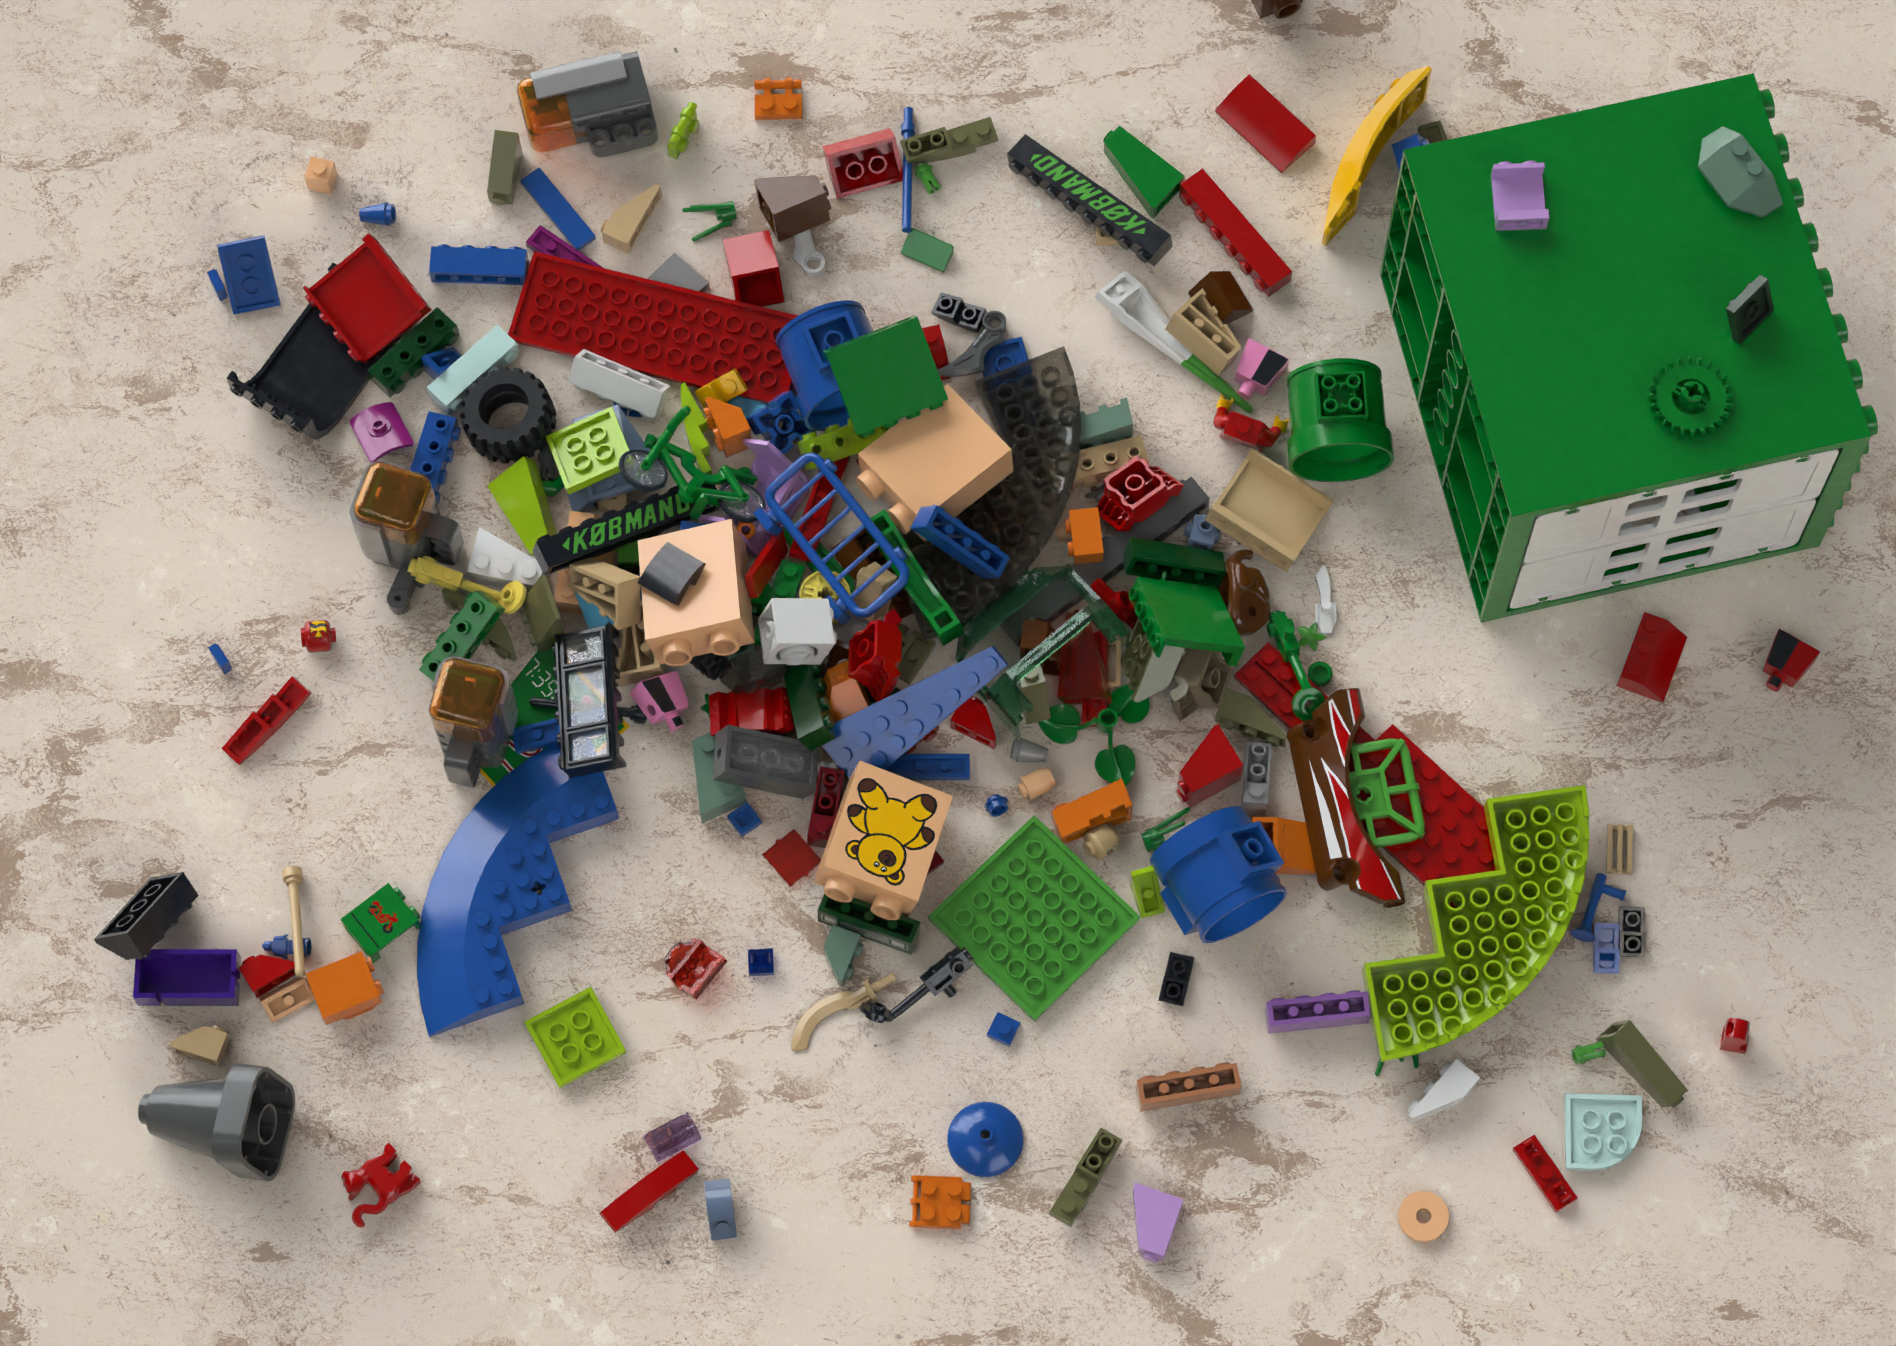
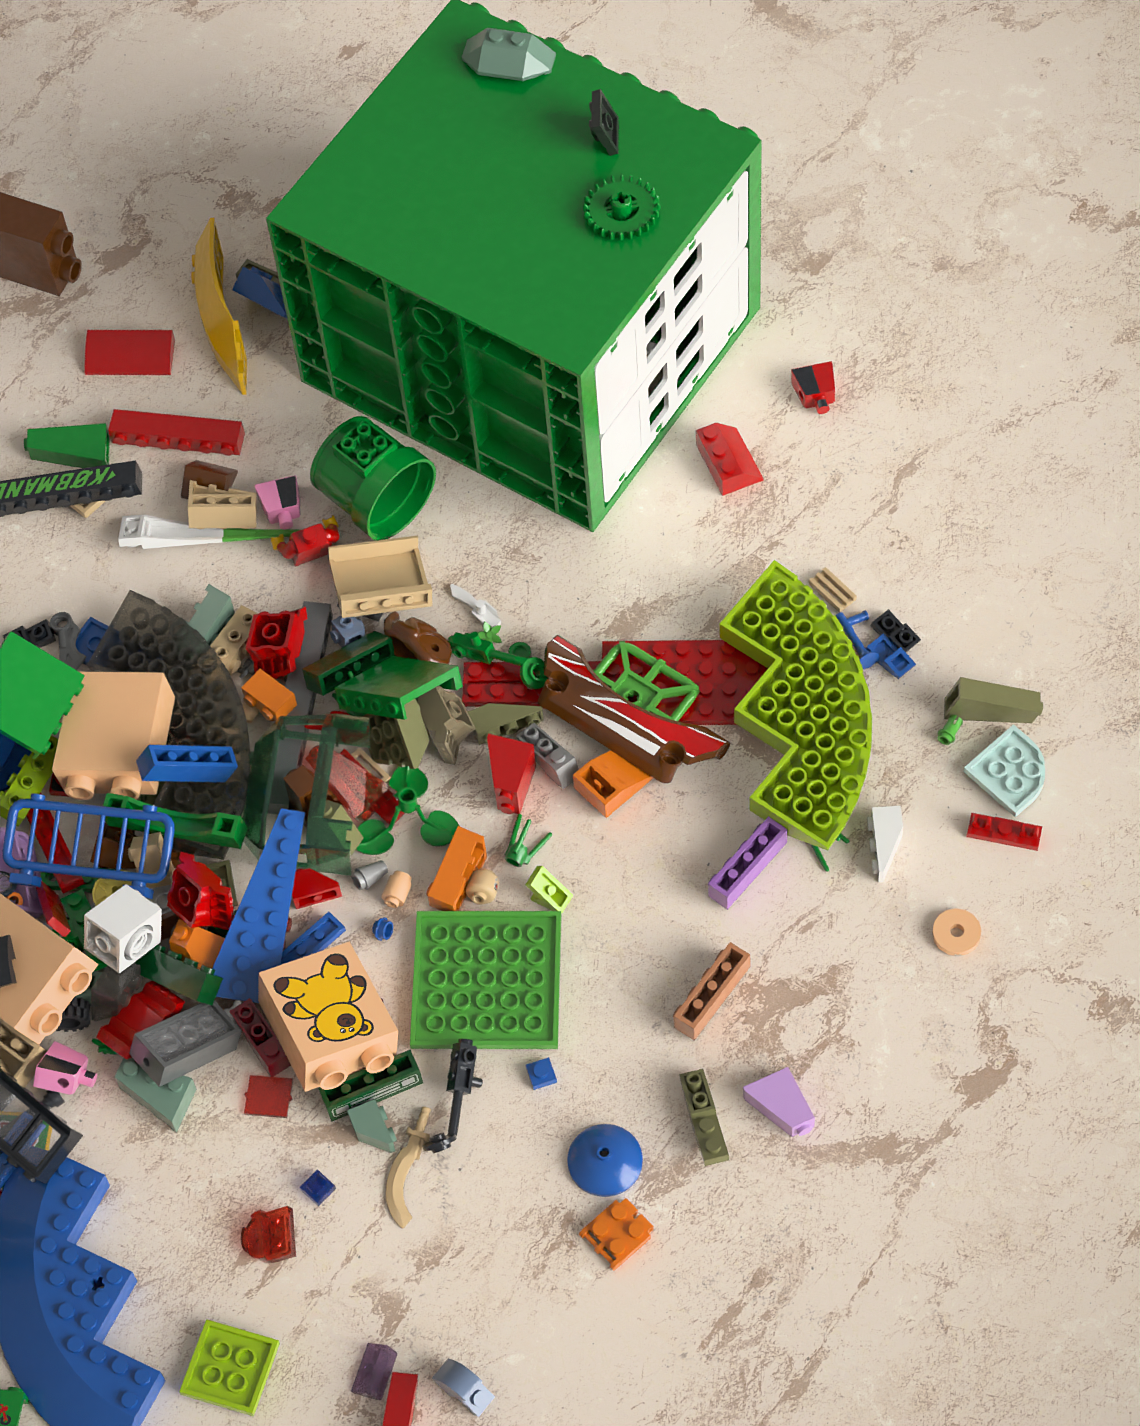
camera: 40 degrees left, 10 degrees down
(744, 819) = (206, 1101): blue tile -> none
(1176, 979) = (627, 930): black slope -> none
(1219, 874) = (593, 825): blue cylinder -> none
(1519, 196) = (375, 182): lavender panel -> none
(1735, 1035) = (1032, 631): red leg -> none

